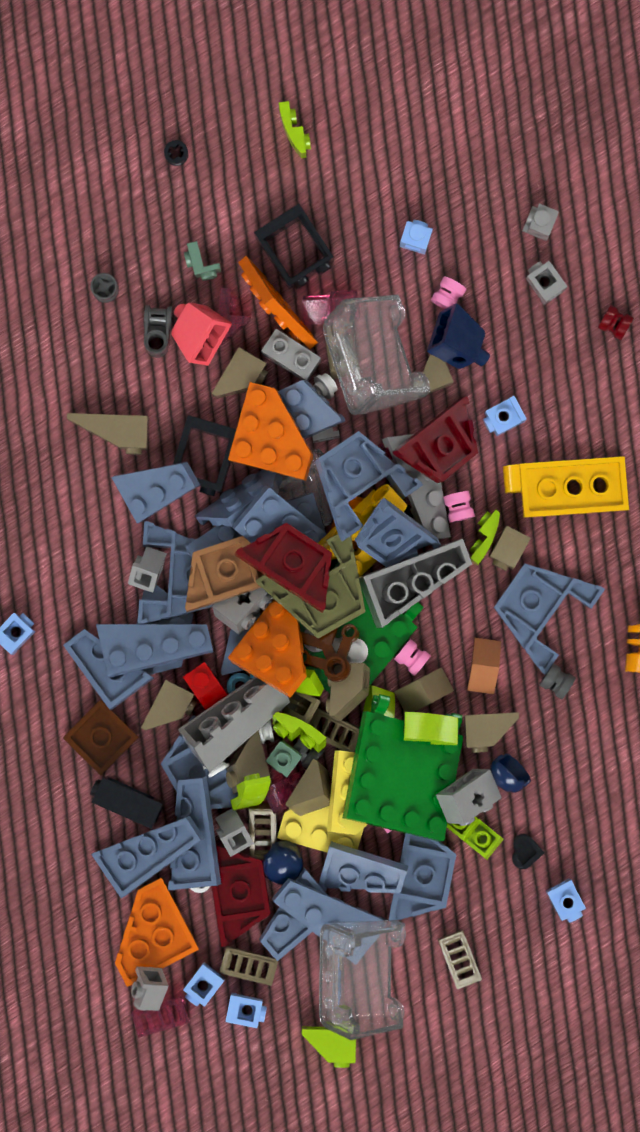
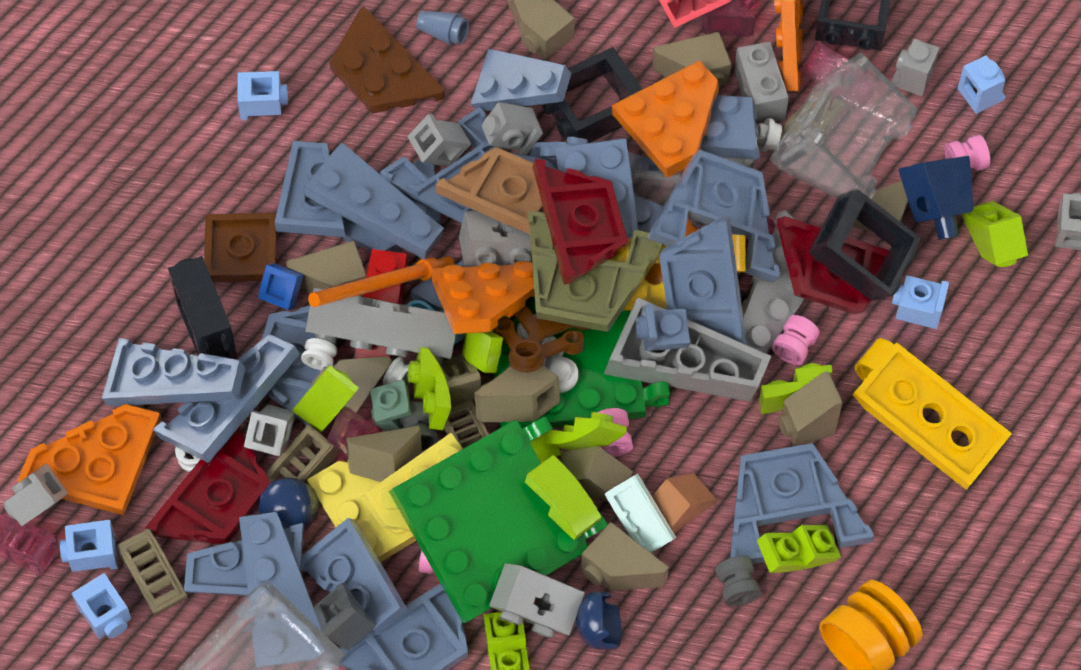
camera: 40 degrees right, 25 degrees down
(60, 547) = (380, 68): none -> reddish brown wing
(72, 486) = (444, 26): none -> sand blue cone
(150, 743) = (280, 286): none -> blue plate
(180, 521) = (512, 127): none -> light grey brick
(220, 658) = (421, 271): none -> orange bar
(368, 260) = (915, 67): none -> light grey brick
(378, 902) = (343, 617): none -> dark grey slope
(395, 584) = (662, 328): none -> sand blue bracket
(402, 680) = (587, 433): none -> lime slope
(431, 426) = (835, 229): none -> black window
(474, 694) = (640, 514): none -> light aqua plate
(508, 332) = (996, 233): none -> lime slope
(571, 631) = (799, 550): none -> lime slope

